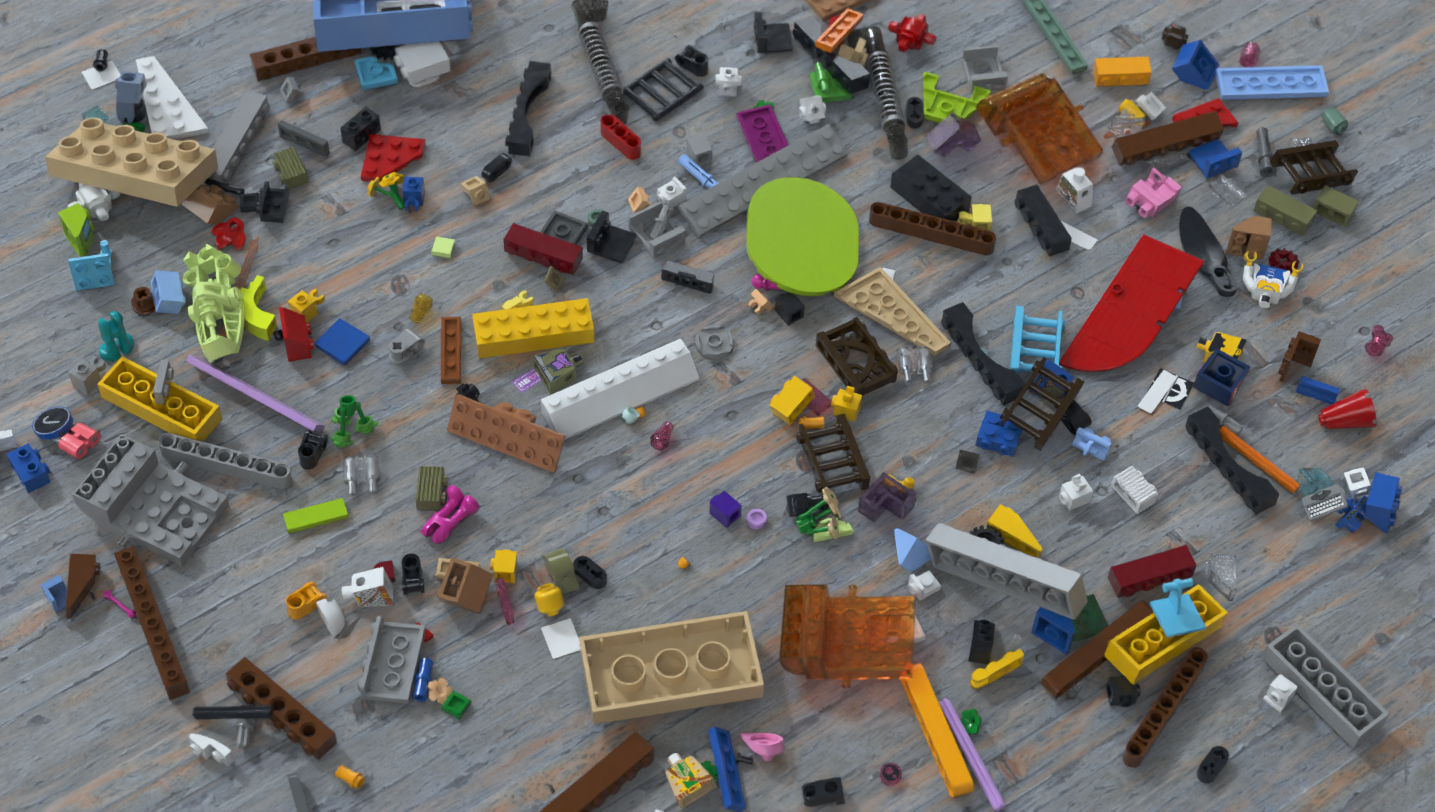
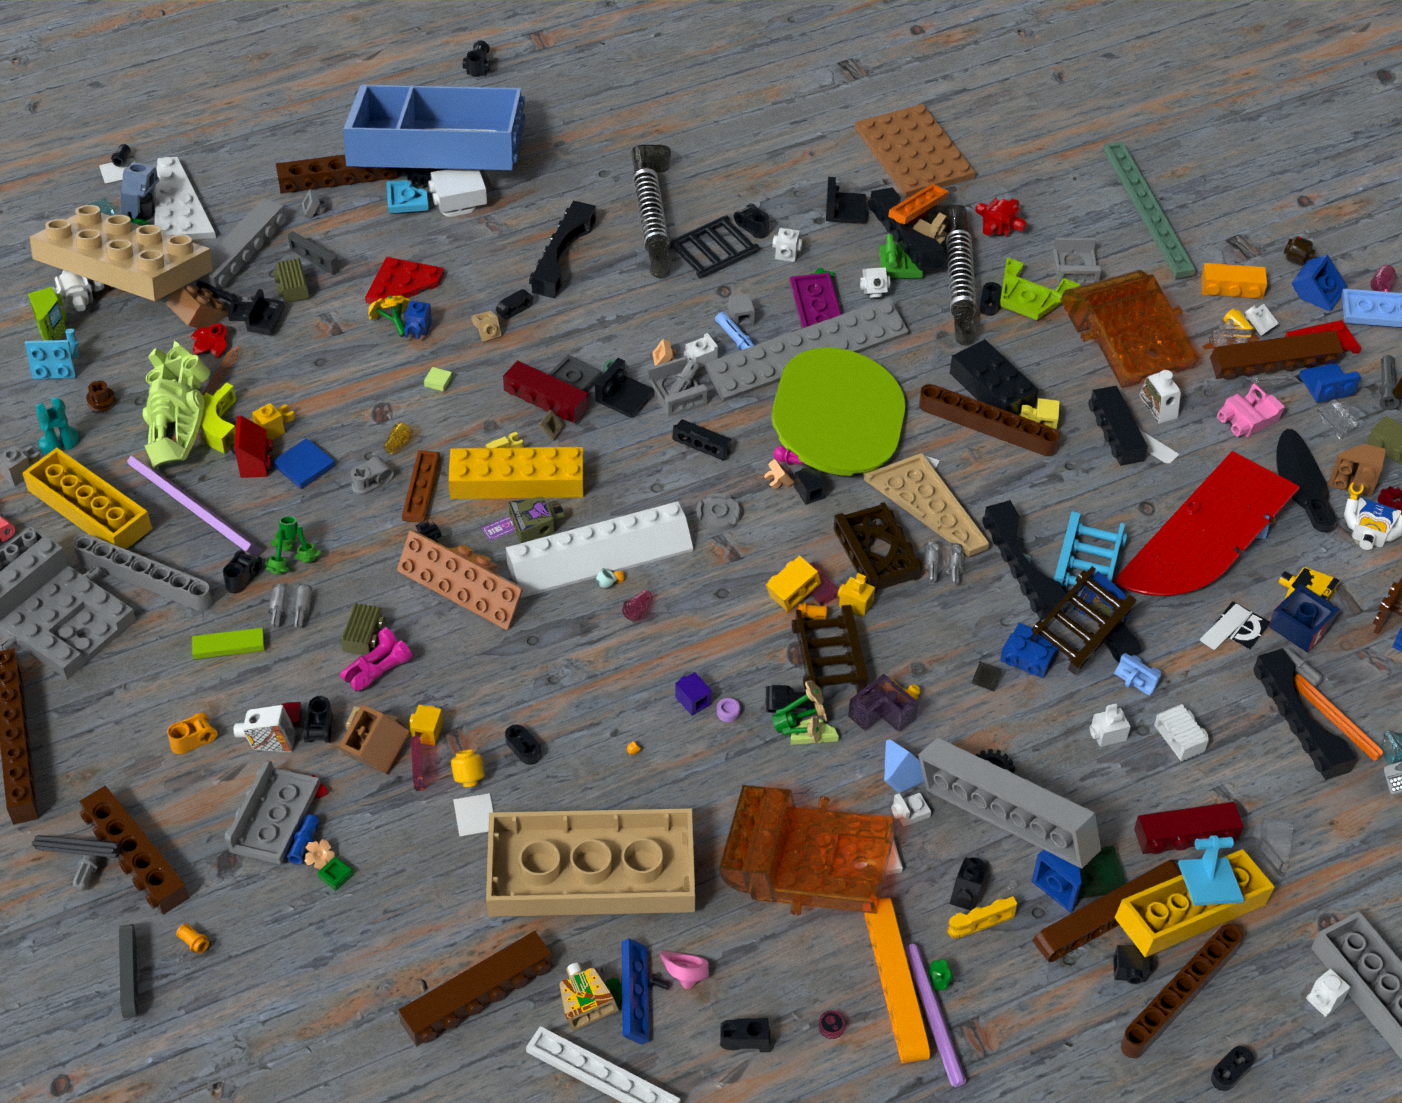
camera: 10 degrees right, 5 degrees down
(162, 386) = (90, 478): light grey plate -> none
(167, 292) = (126, 389): light blue brick -> none
(207, 747) = (41, 883): white slope -> none
(331, 615) = (218, 754): white brick -> none
(358, 129) = (373, 250): black brick -> none
(561, 569) = (489, 738): olive brick -> none
(620, 136) = (657, 288): red beam -> none
(952, 133) = (1027, 322): clear purple brick -> none
(1014, 531) = (1028, 759): yellow slope -> none

